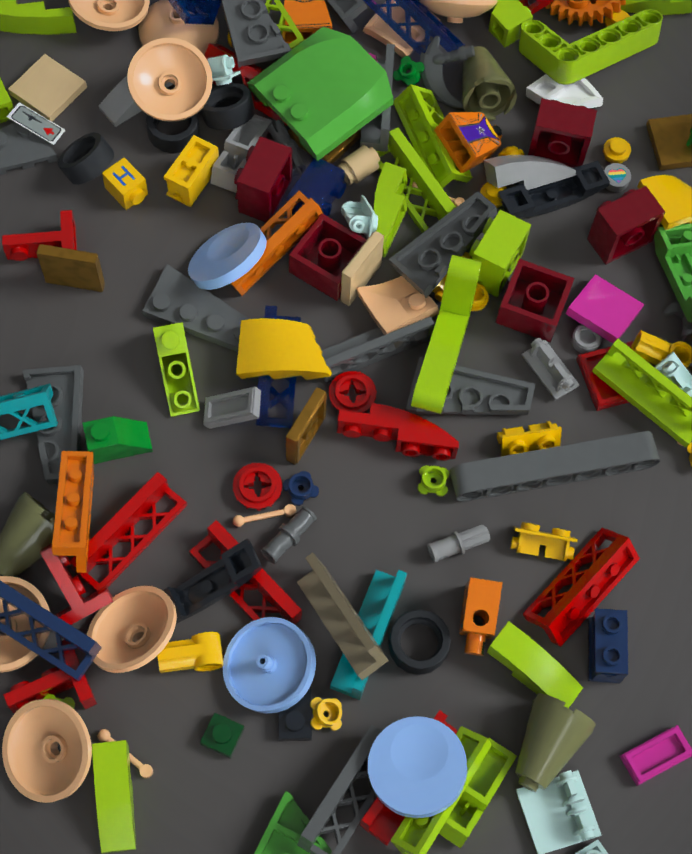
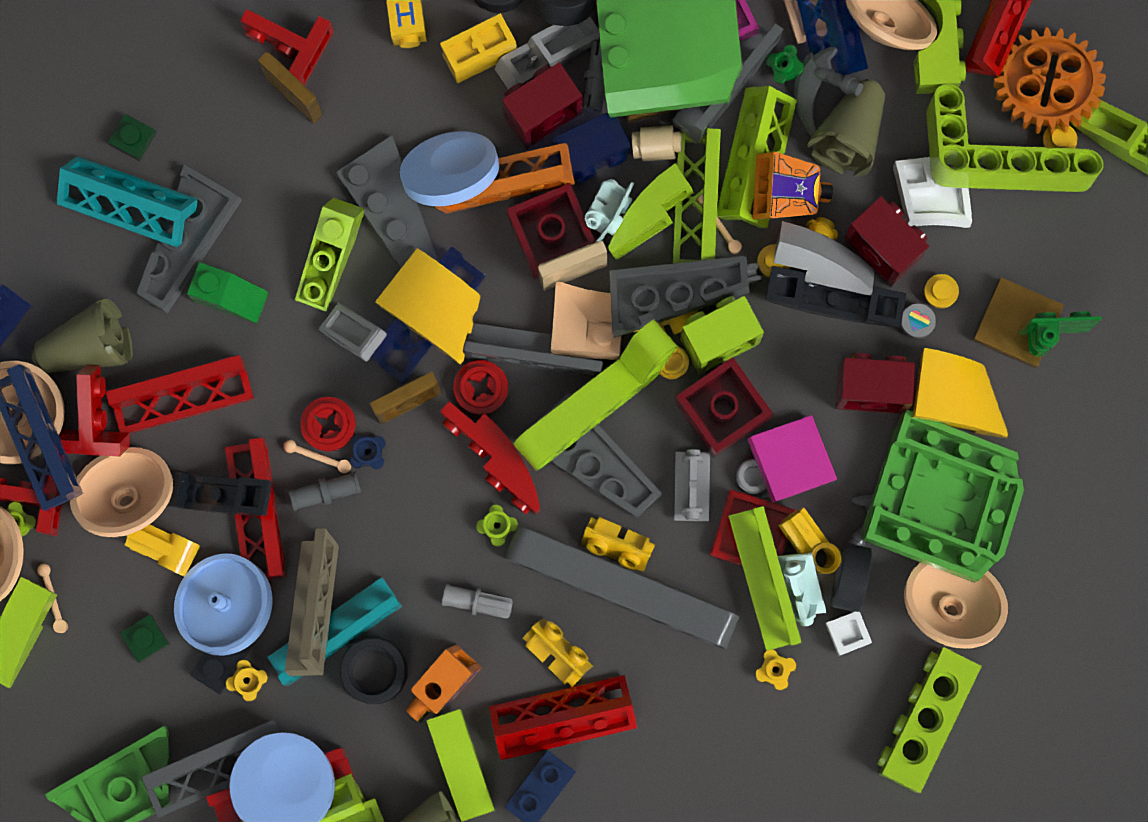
camera: 40 degrees right, 15 degrees up
(74, 507) = (138, 345): orange fence -> none

